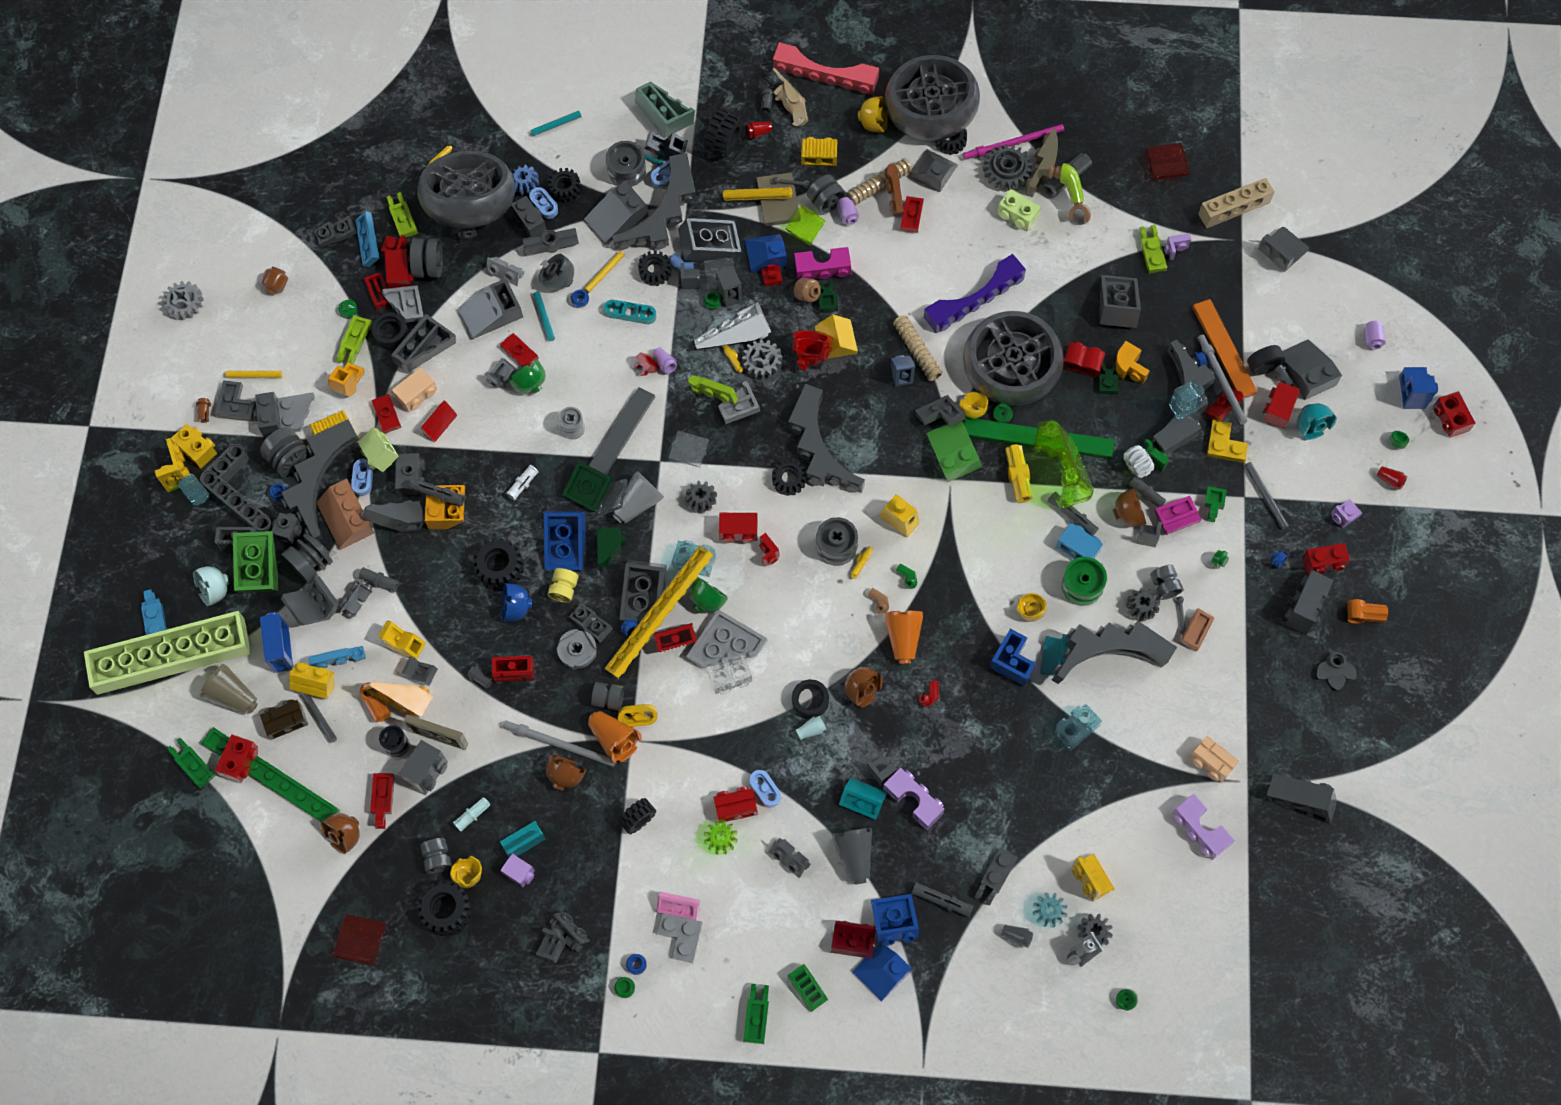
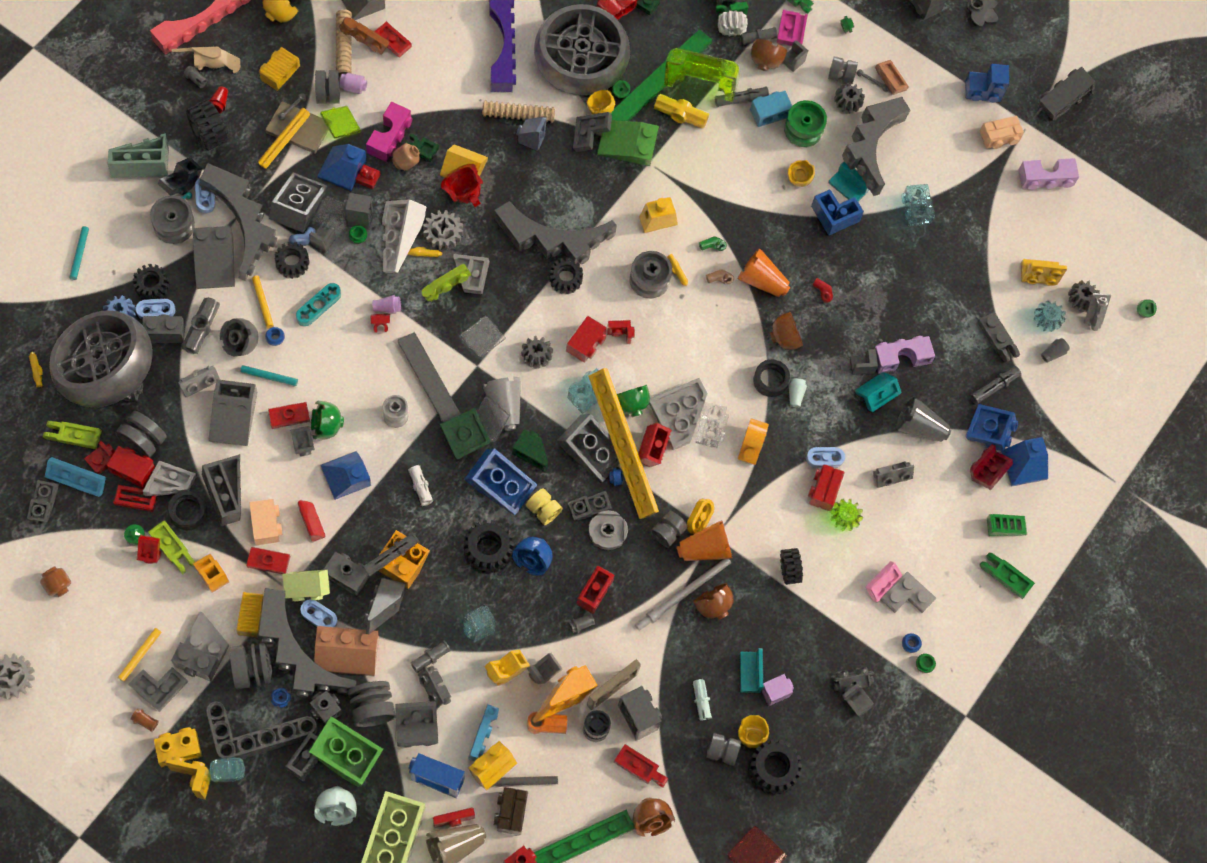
camera: 70 degrees left, 0 degrees up
(251, 679) = (454, 819): none -> red plate
(337, 323) = (148, 549): none -> red bracket
(424, 596) = (479, 623): none -> clear light blue brick
(496, 423) = (346, 475): none -> blue slope
(738, 715) = (753, 441): none -> light orange brick
(1253, 717) = (989, 85): none -> blue brick

